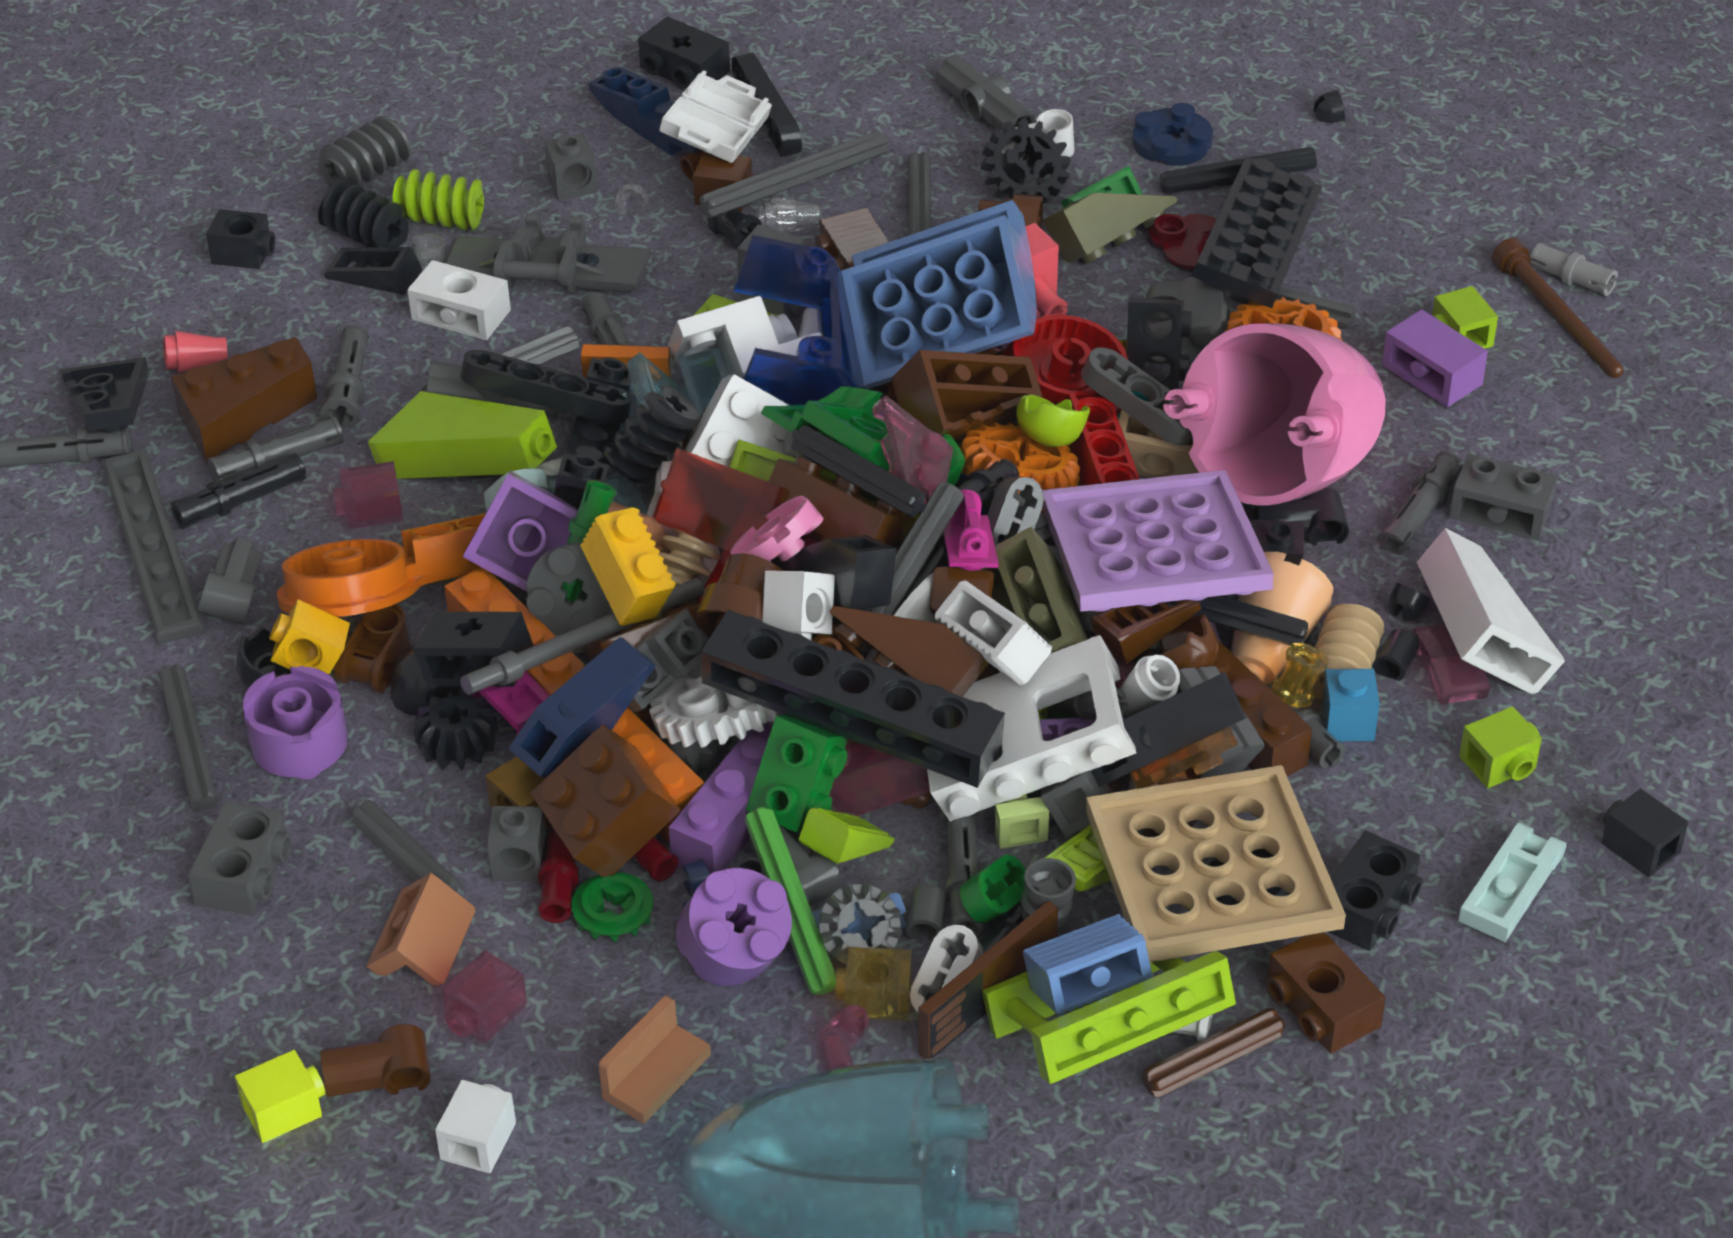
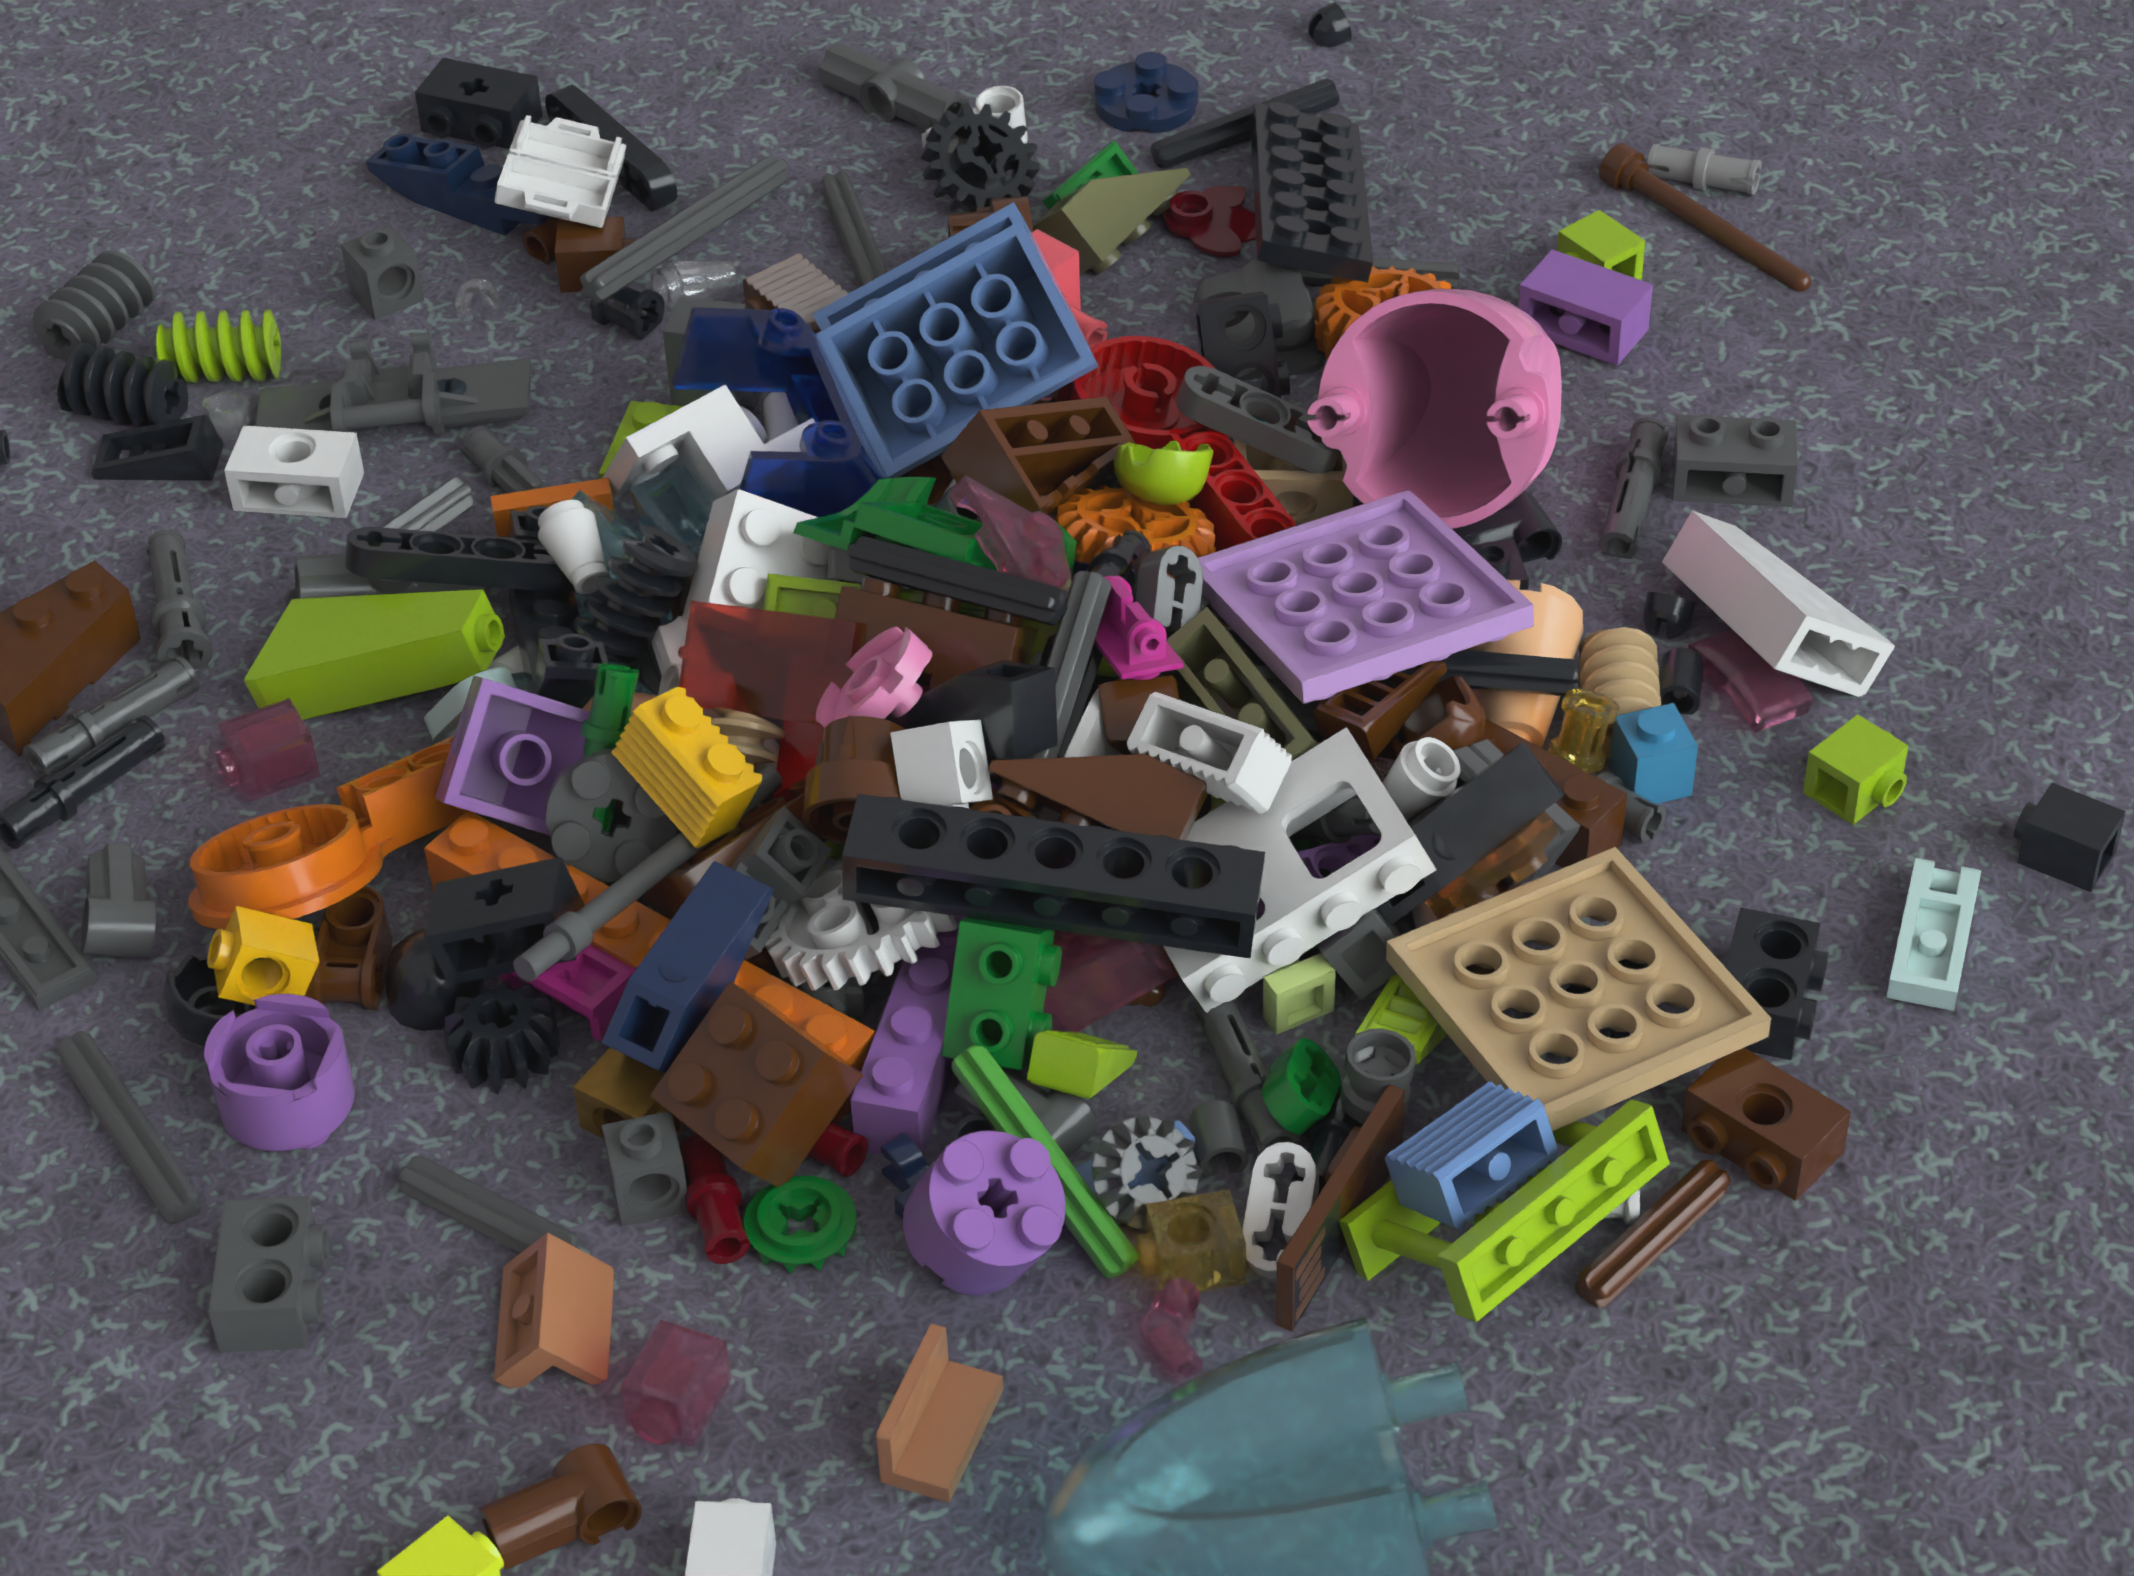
camera: 15 degrees left, 0 degrees up
(620, 389) = (574, 543): none -> white cone

